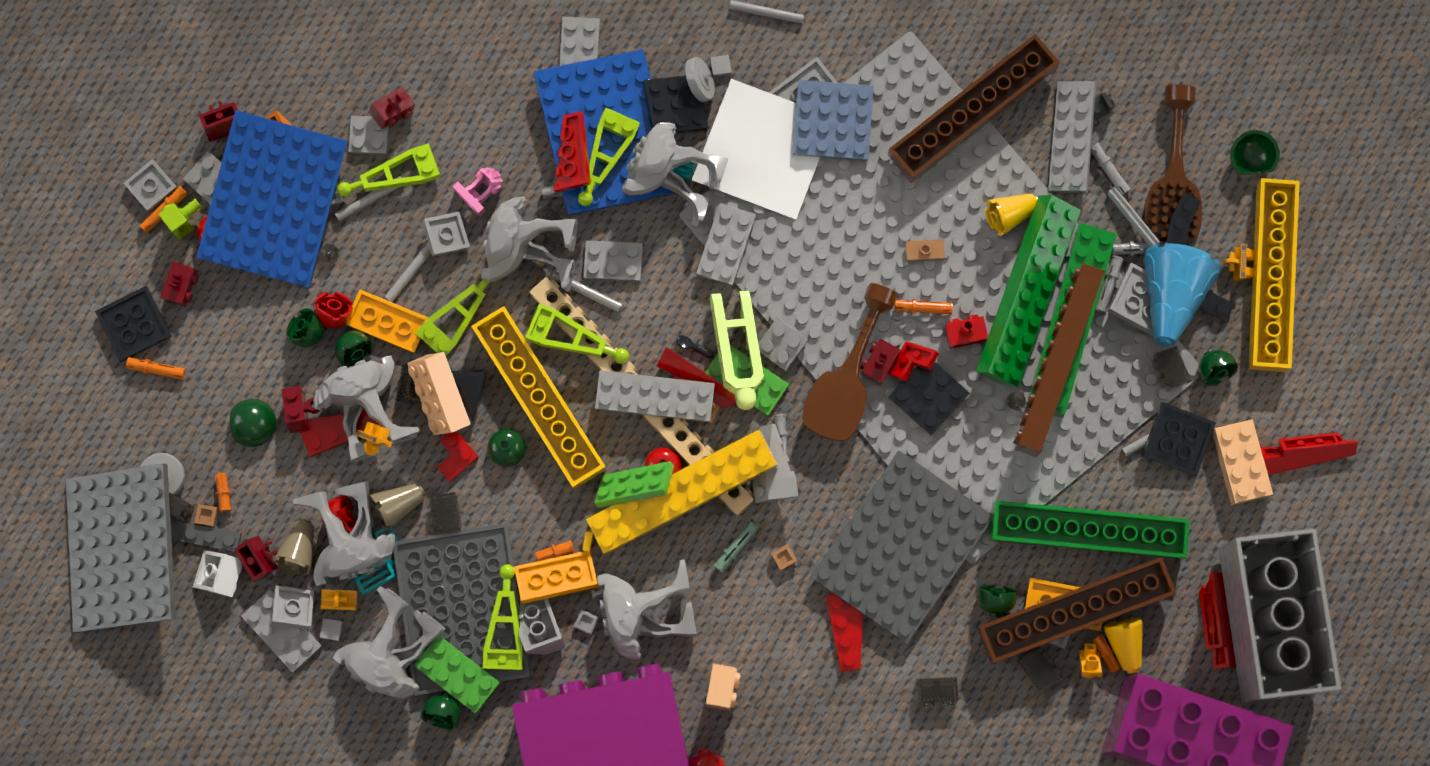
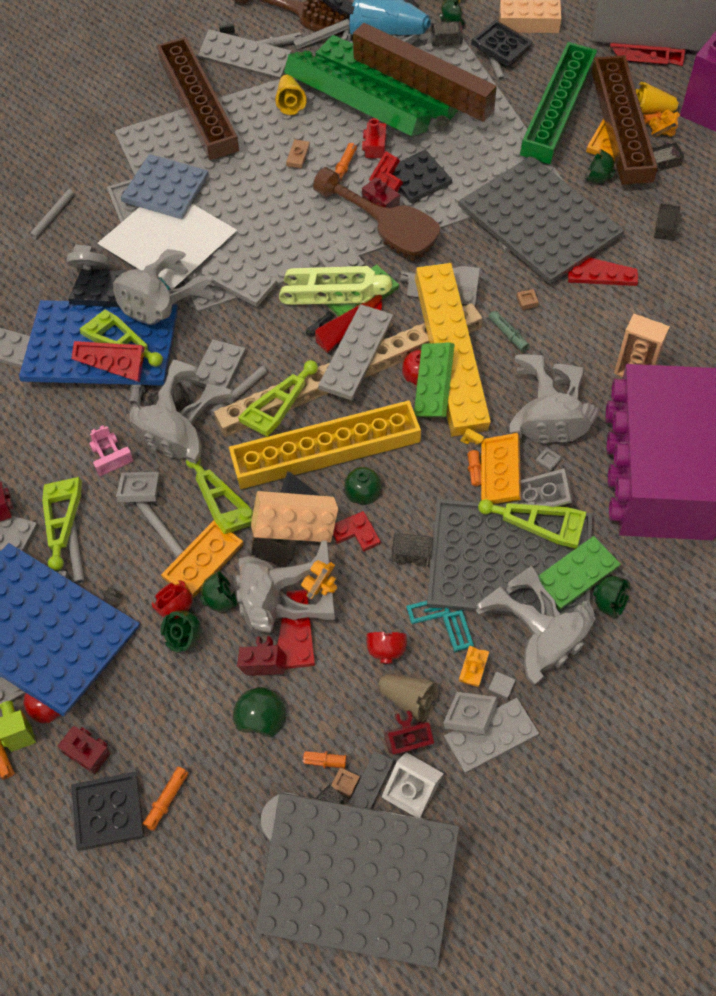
camera: 75 degrees left, 20 degrees down
(353, 552) = (427, 635): light grey animal -> none
(396, 503) = (390, 592): dark tan cone -> none

